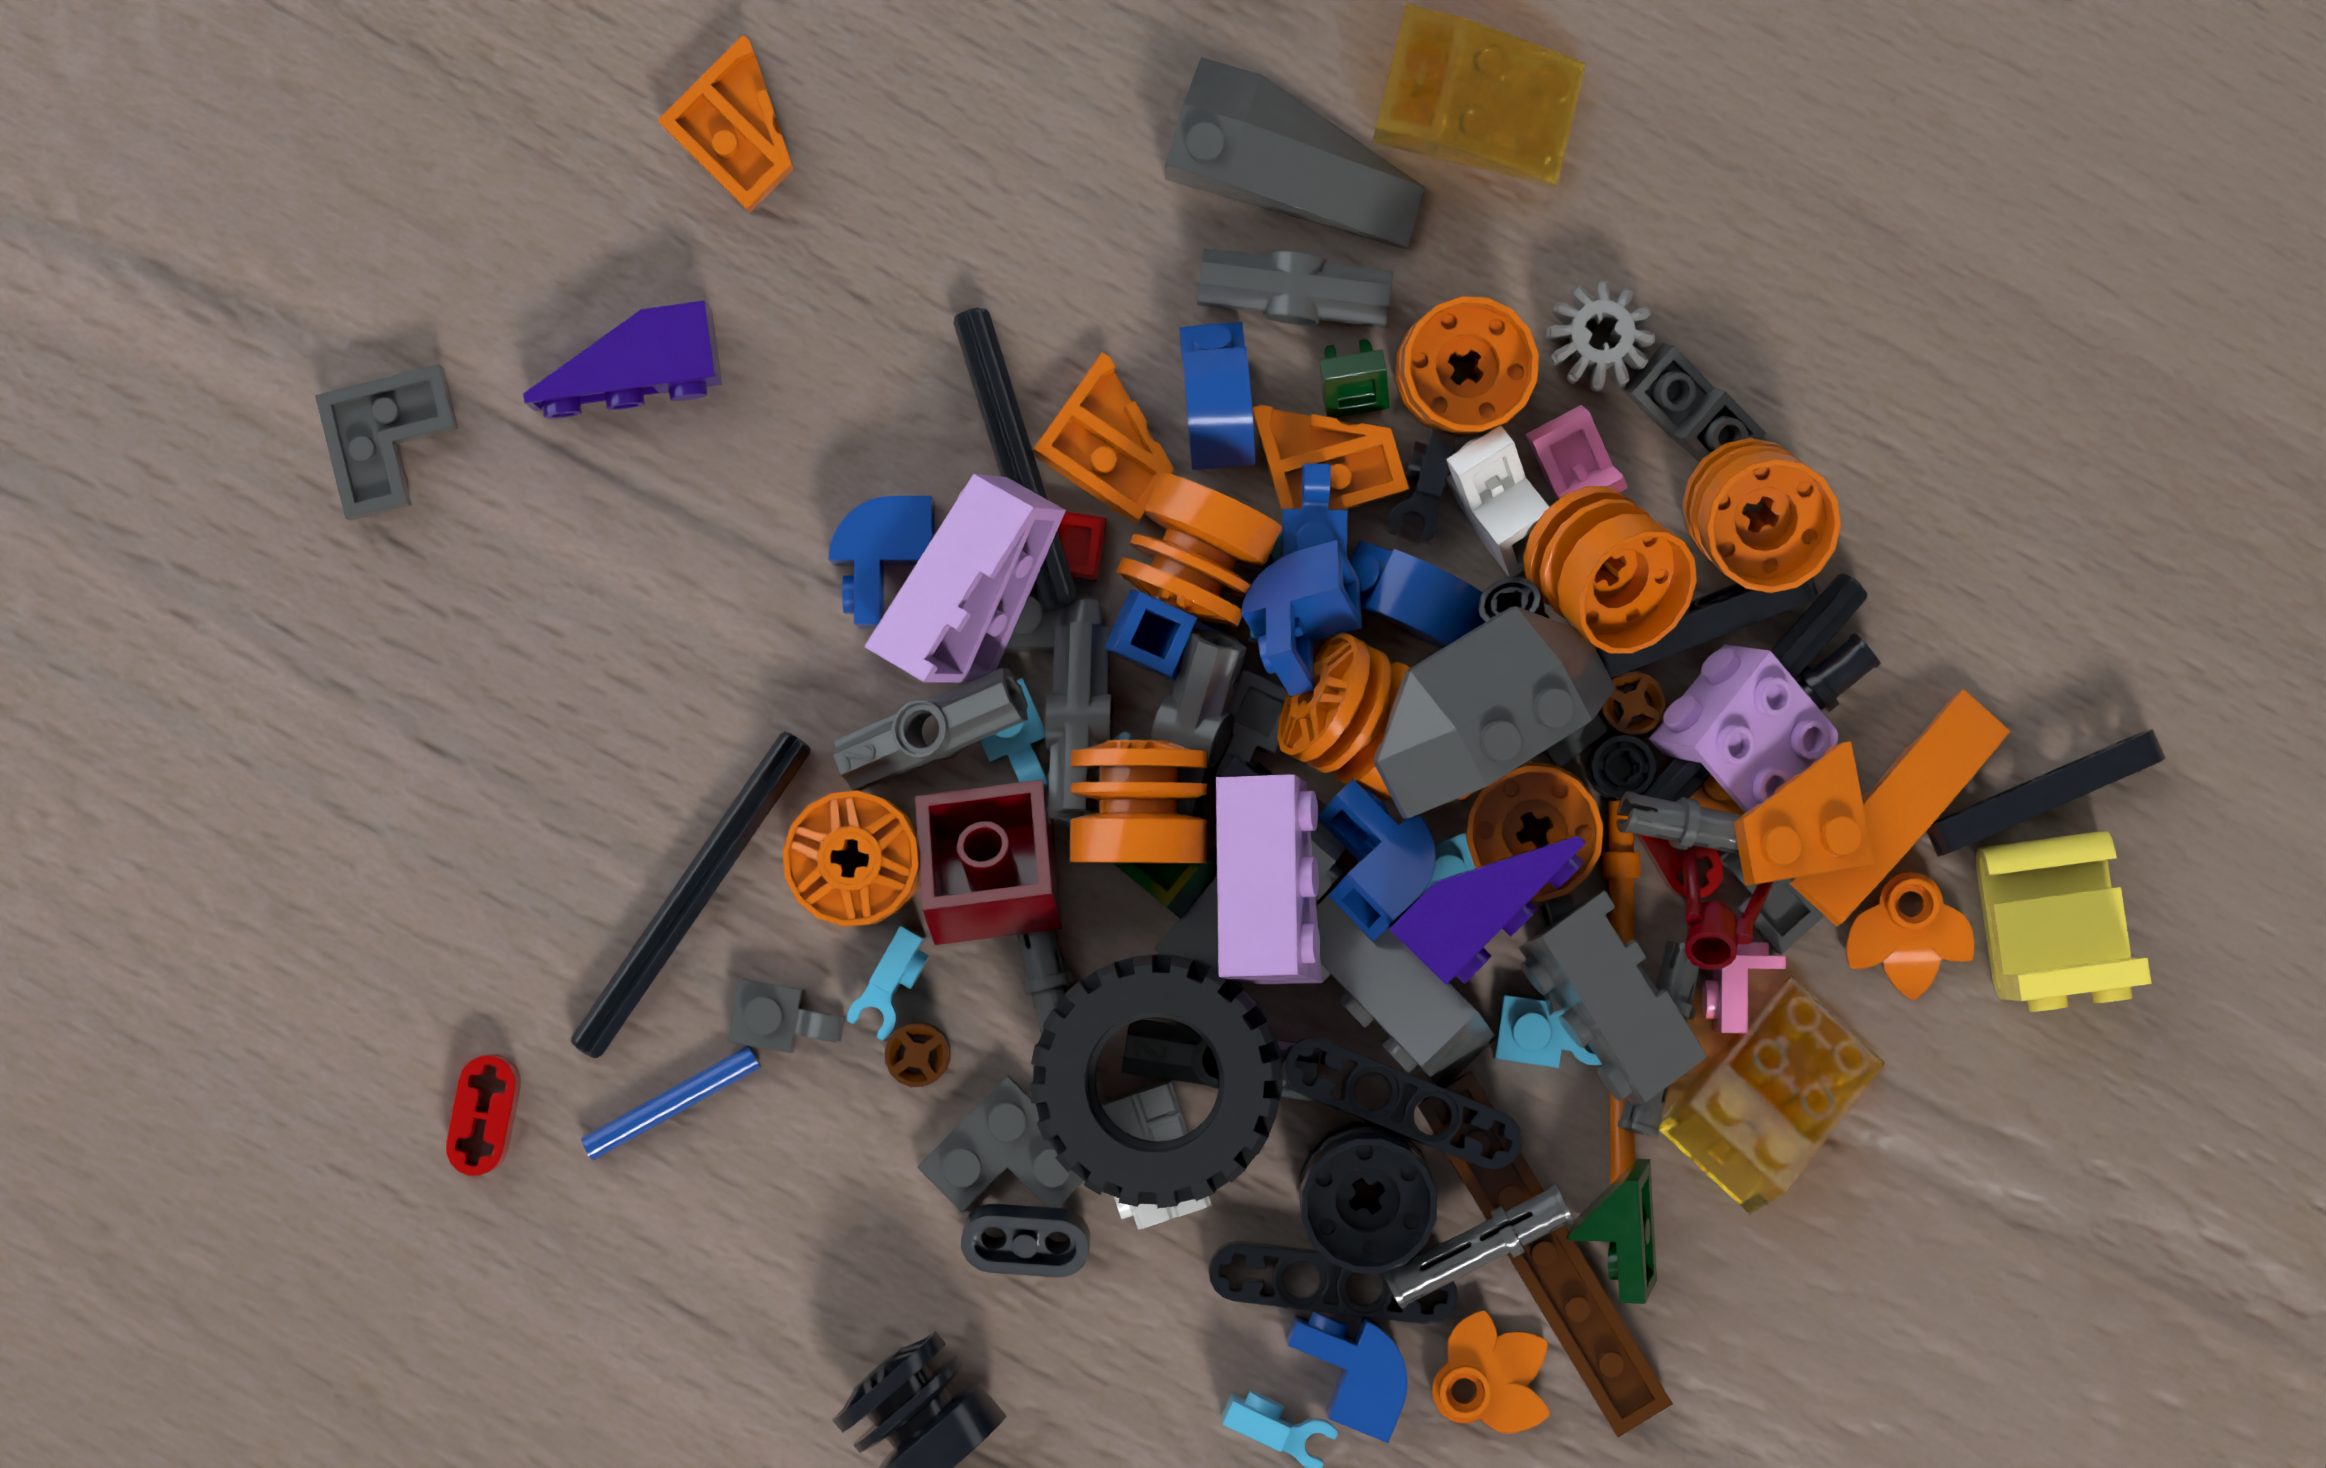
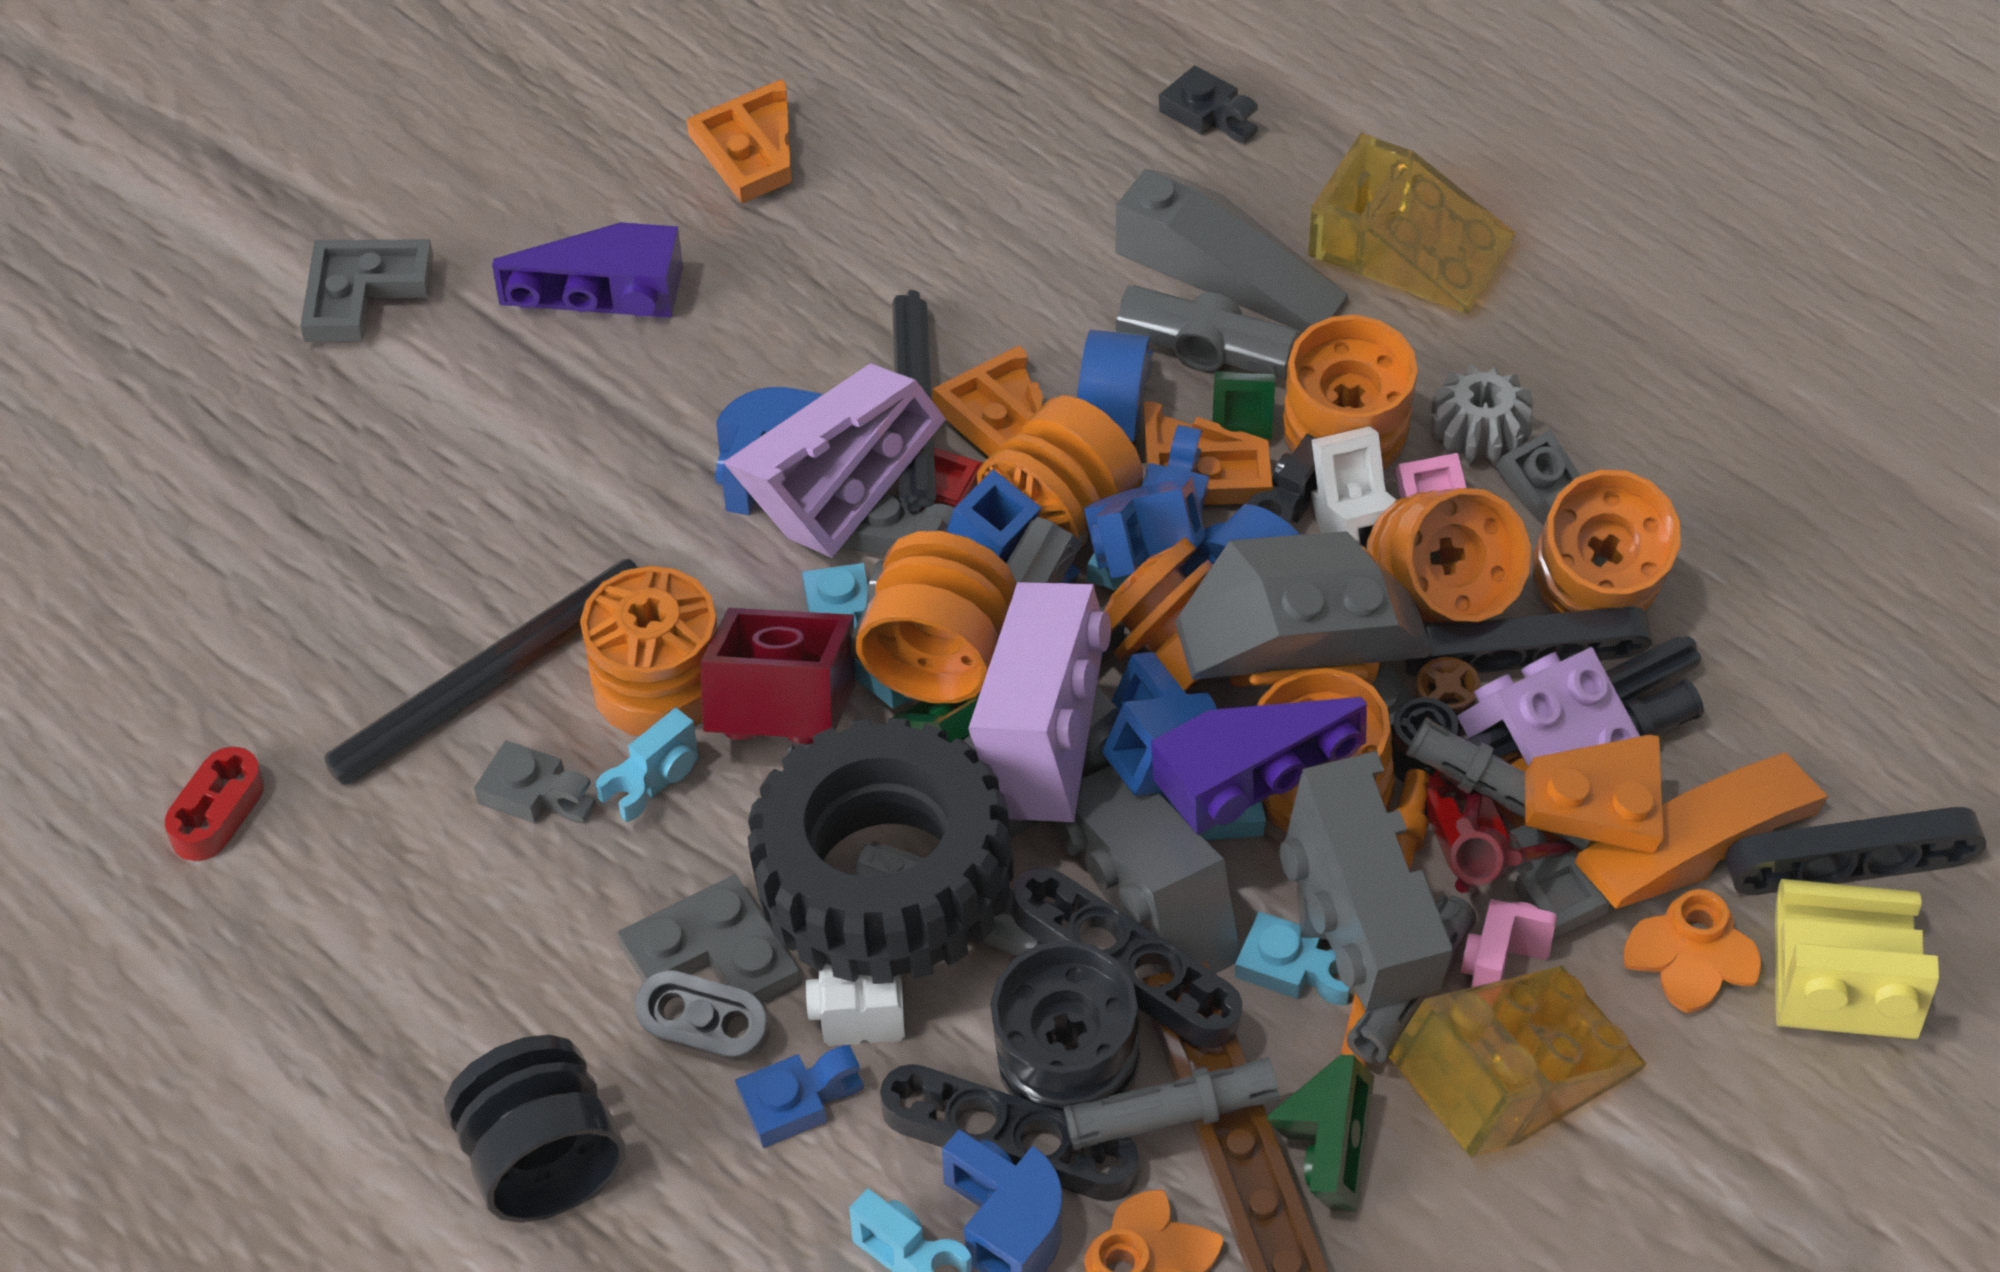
camera: 15 degrees right, 35 degrees down
(671, 1102) = (397, 834): blue bar -> none
(909, 1059) = (663, 822): reddish brown wheel -> none
(963, 718) = (772, 567): dark grey piece -> none
(1126, 1296) = (789, 1098): none -> blue plate

